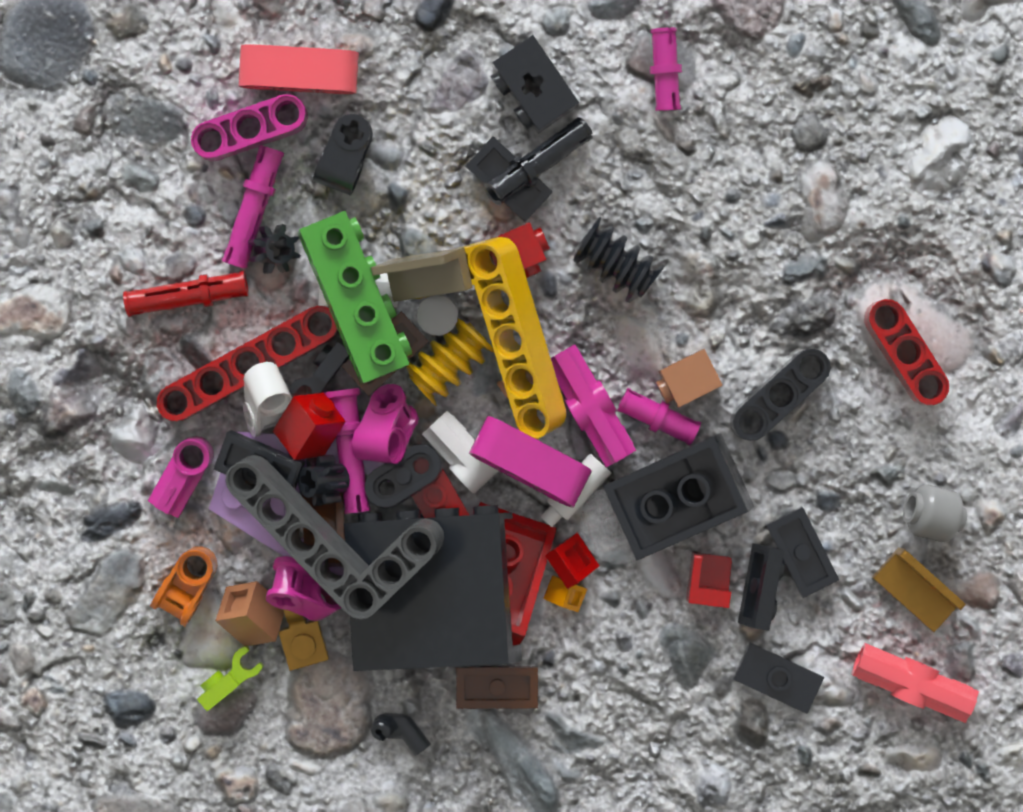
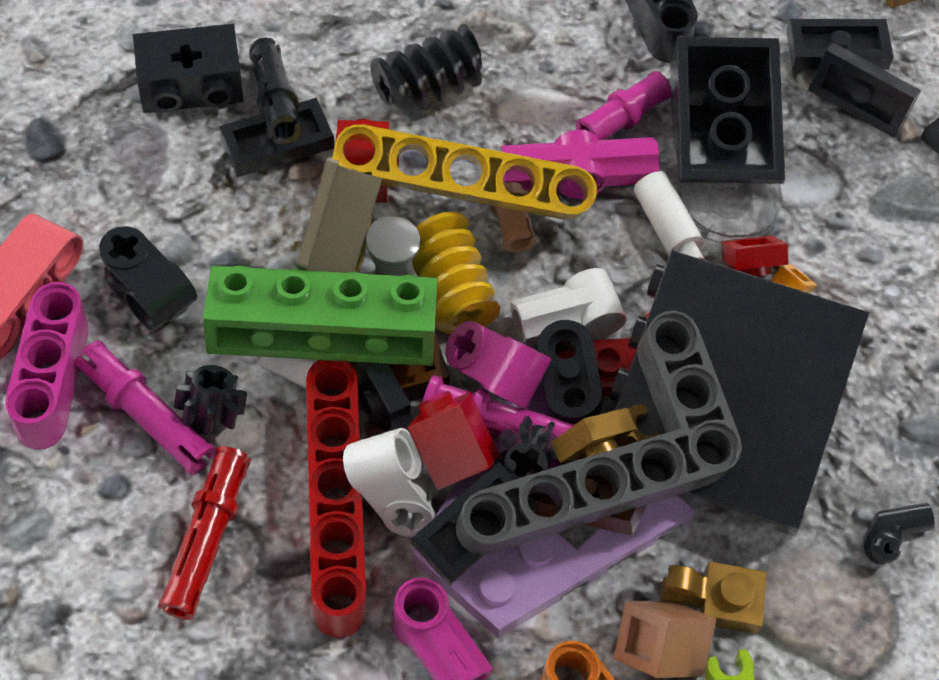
camera: 65 degrees left, 30 degrees down
(298, 591) = (664, 538): dark pink piece -> none
(342, 522) = (600, 434): none -> pearl gold plate
(496, 687) = (879, 397): reddish brown plate -> none
(530, 461) = (618, 225): dark pink beam -> none
(688, 379) = (595, 60): nougat brick -> none
(709, 580) = (834, 143): red panel -> none

